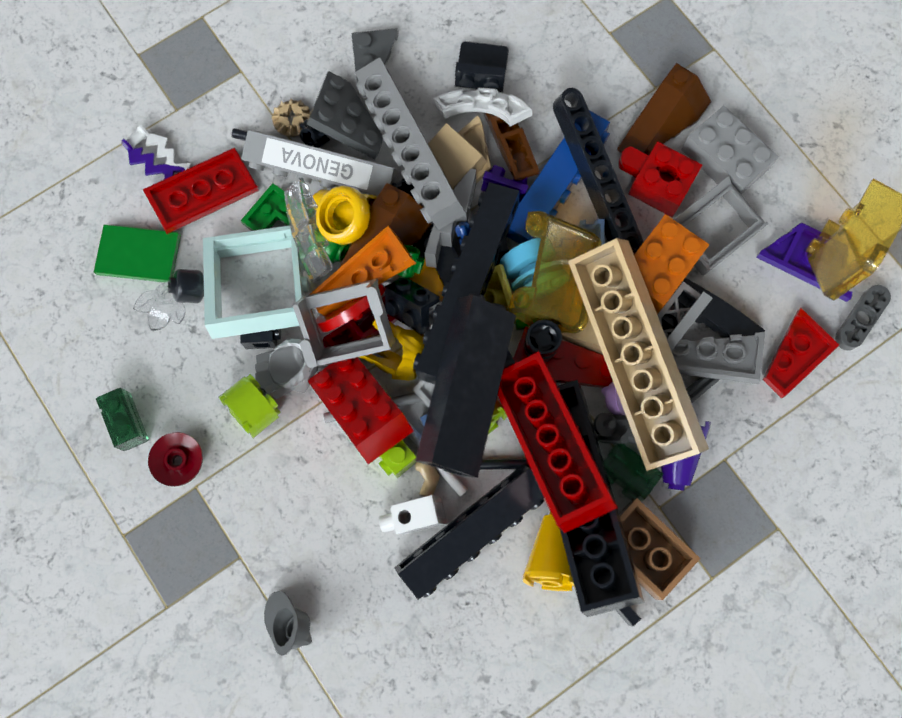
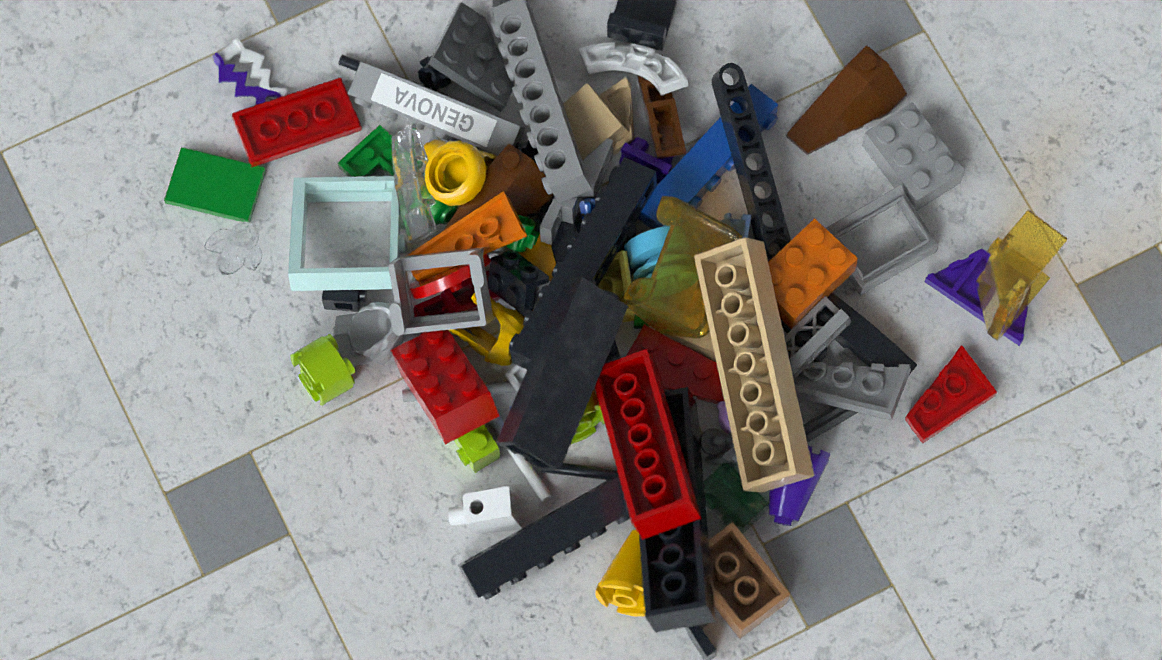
camera: 10 degrees right, 5 degrees down
(122, 419) = (180, 366): clear green brick -> none
(165, 451) = (226, 405): dark red dish -> none
(187, 286) = (270, 229): black head -> none
(281, 113) = (398, 55): tan gear -> none
(285, 624) = (332, 604): dark grey piece -> none
(431, 479) = (511, 470): tan arm -> none
(544, 338) = (659, 338): black wheel -> none
(653, 185) = (817, 181): red brick -> none
(873, 313) = (1025, 386): dark grey beam -> none

